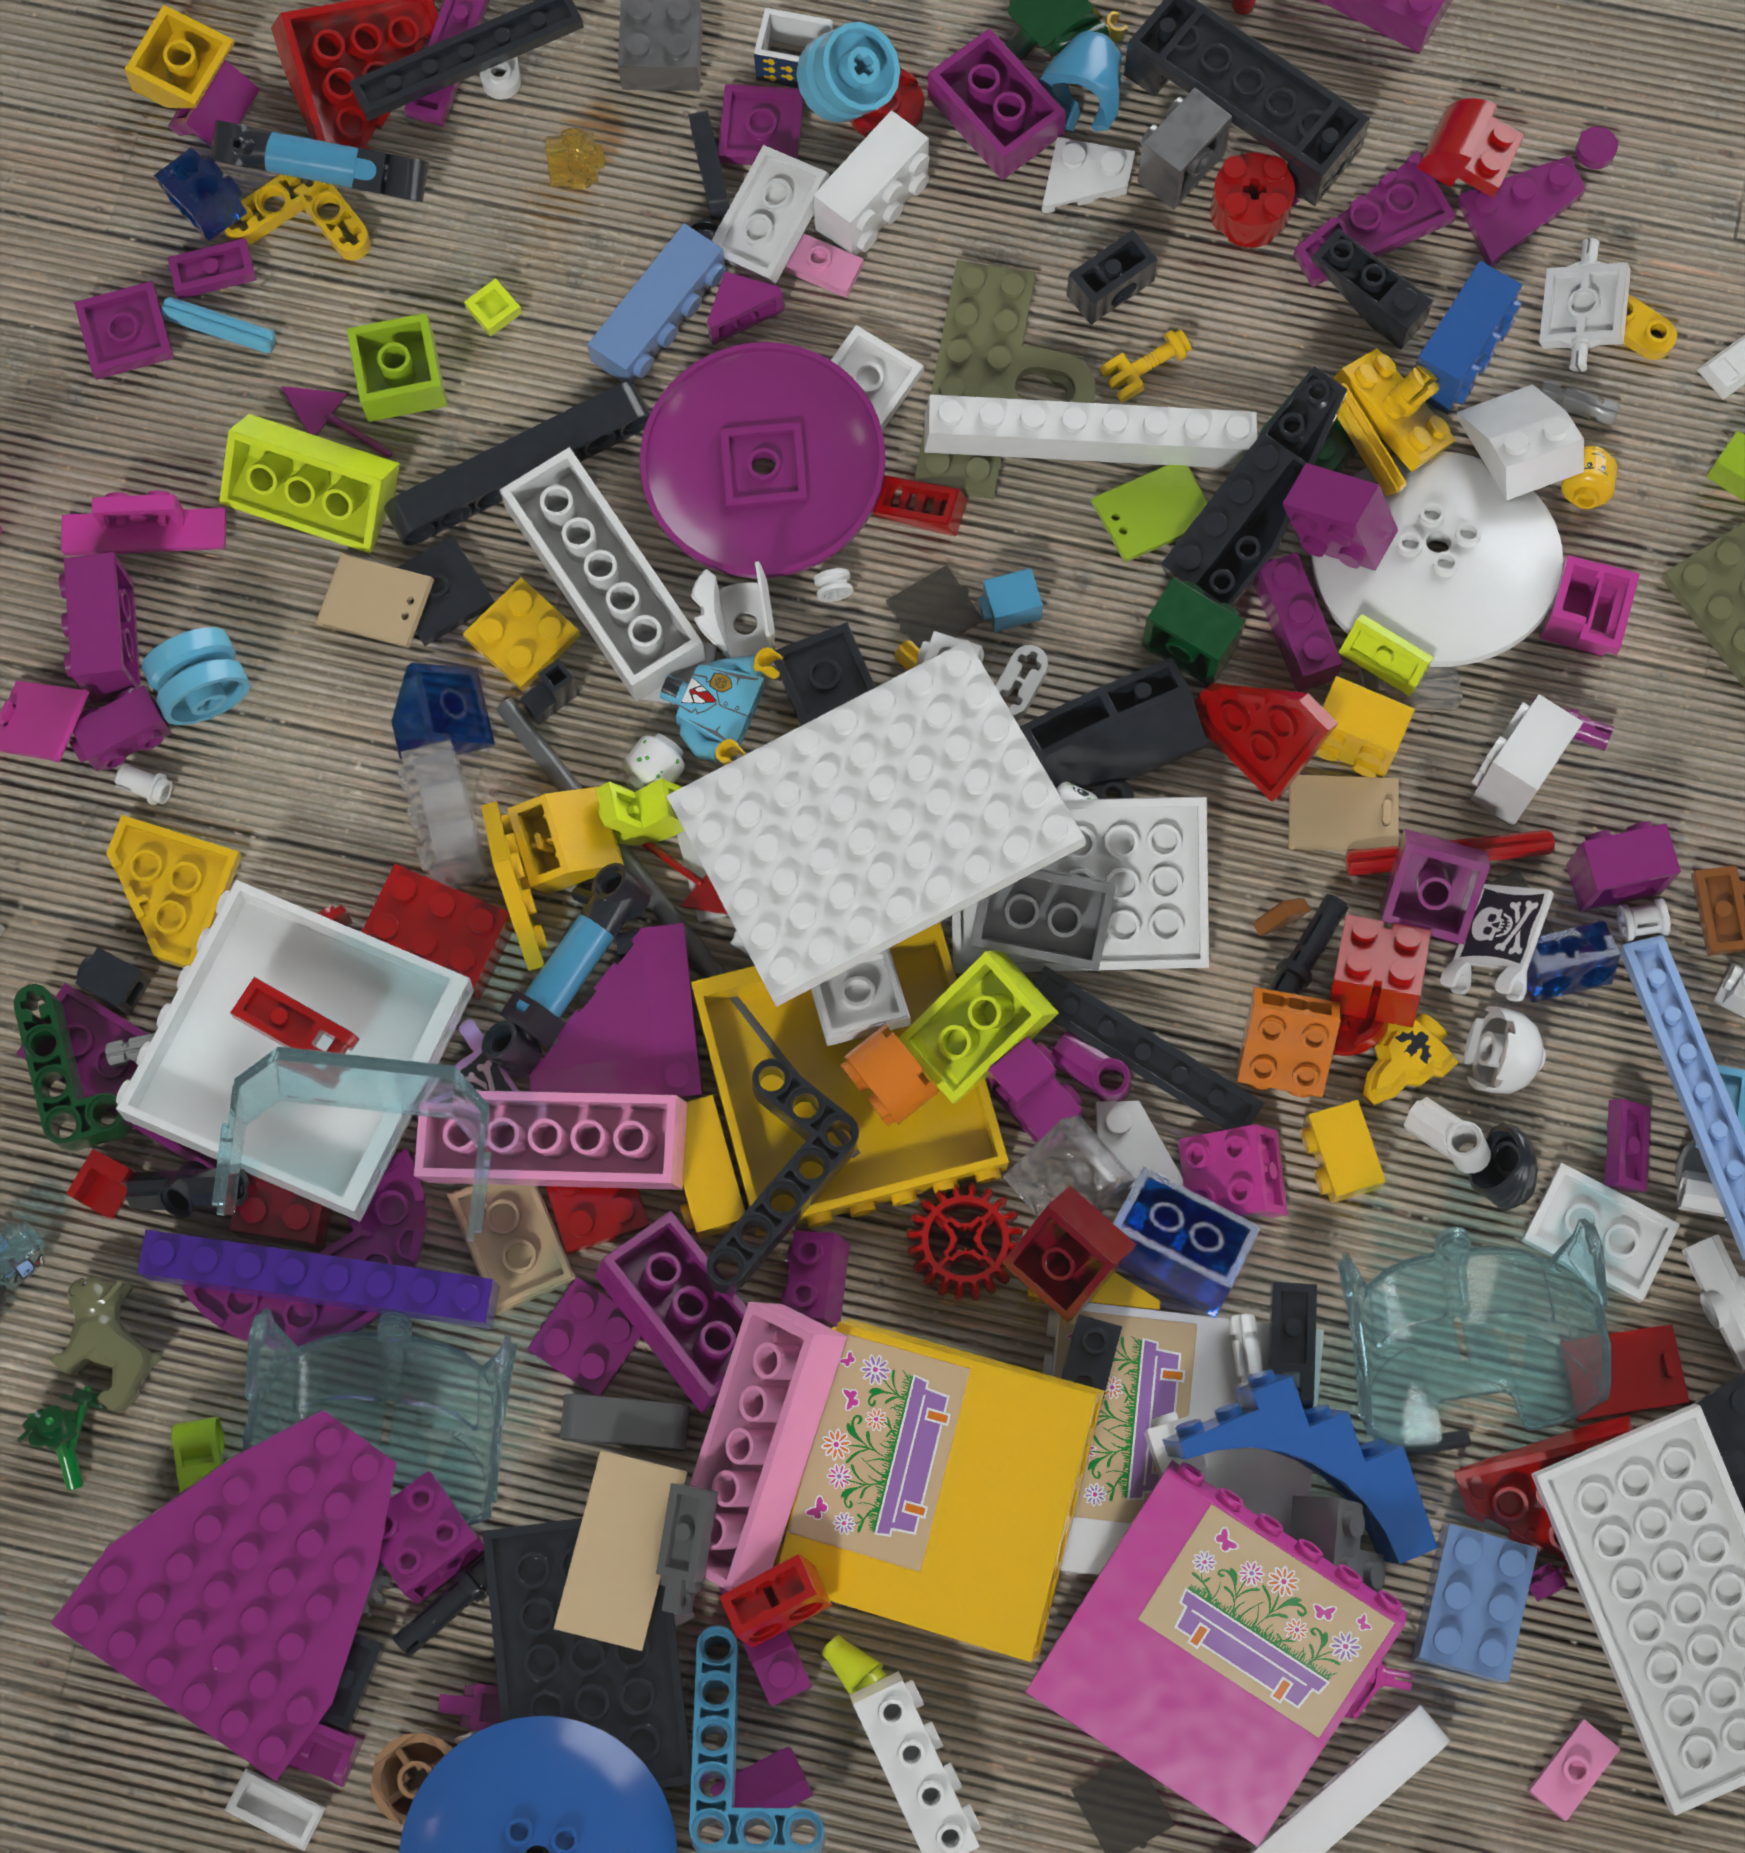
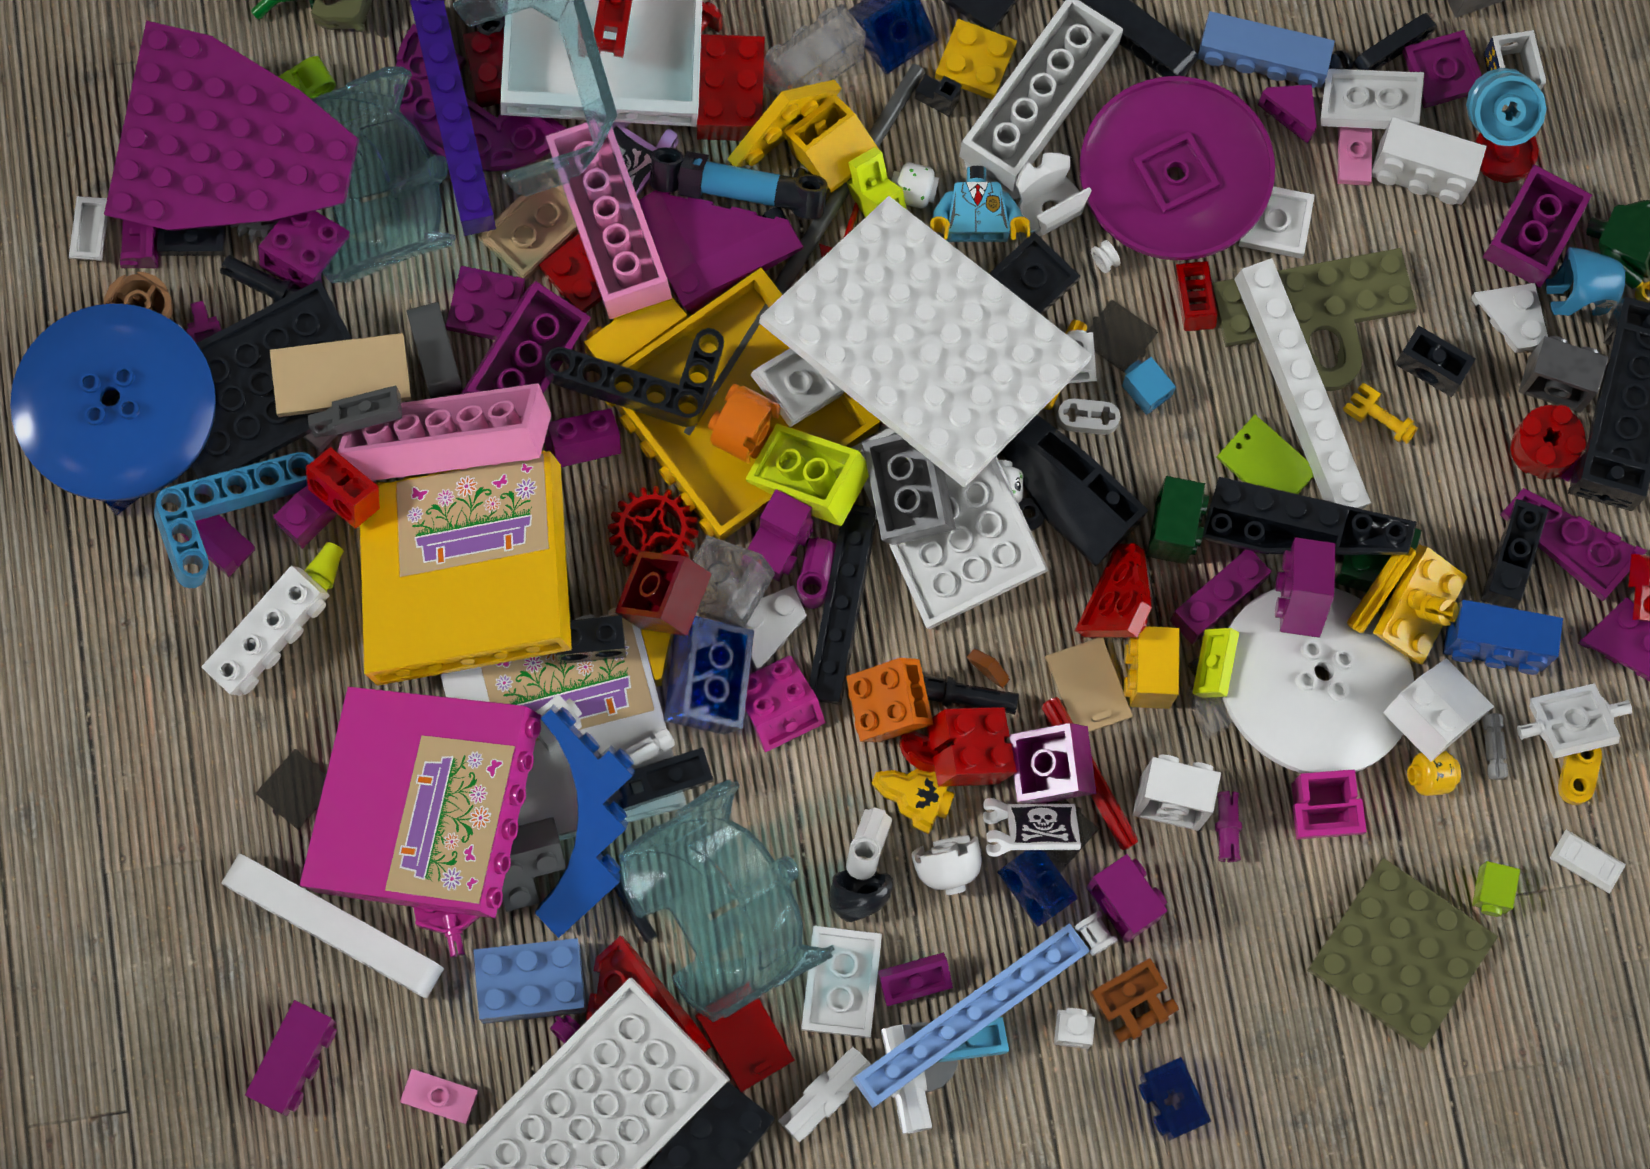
camera: 60 degrees right, 0 degrees up
(1342, 1152) = (826, 772): yellow brick -> none

